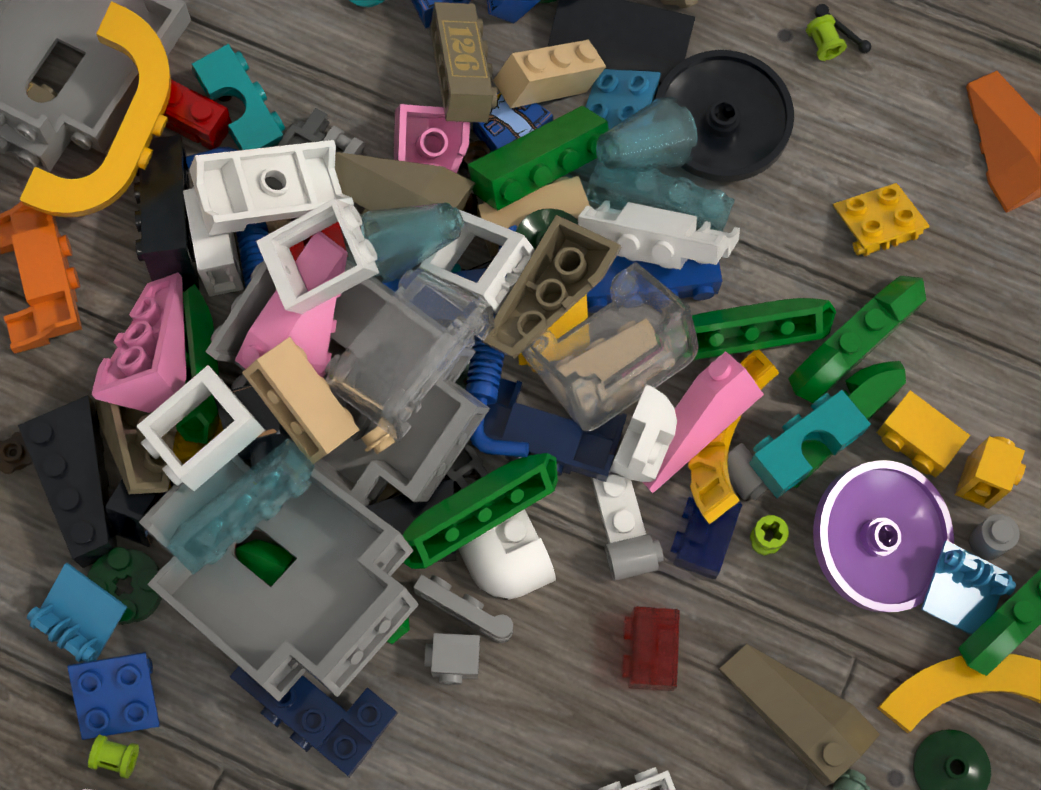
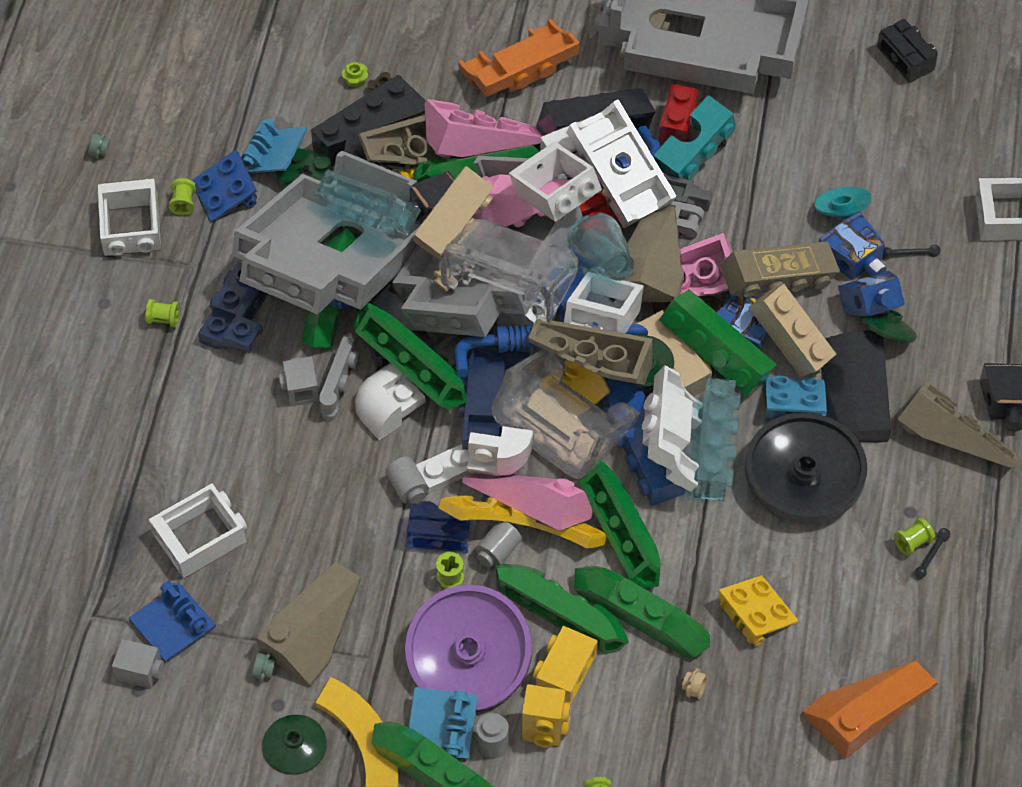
camera: 80 degrees right, 15 degrees down
(129, 151) = (641, 73): yellow arch -> none
(217, 451) = (424, 183): white window -> none
(650, 138) = (749, 398): clear light blue cone -> none
(652, 648) = (338, 508): clear red brick -> none
(833, 422) = (508, 550): teal arch -> none
(960, 306) = (695, 683): none -> tan plate

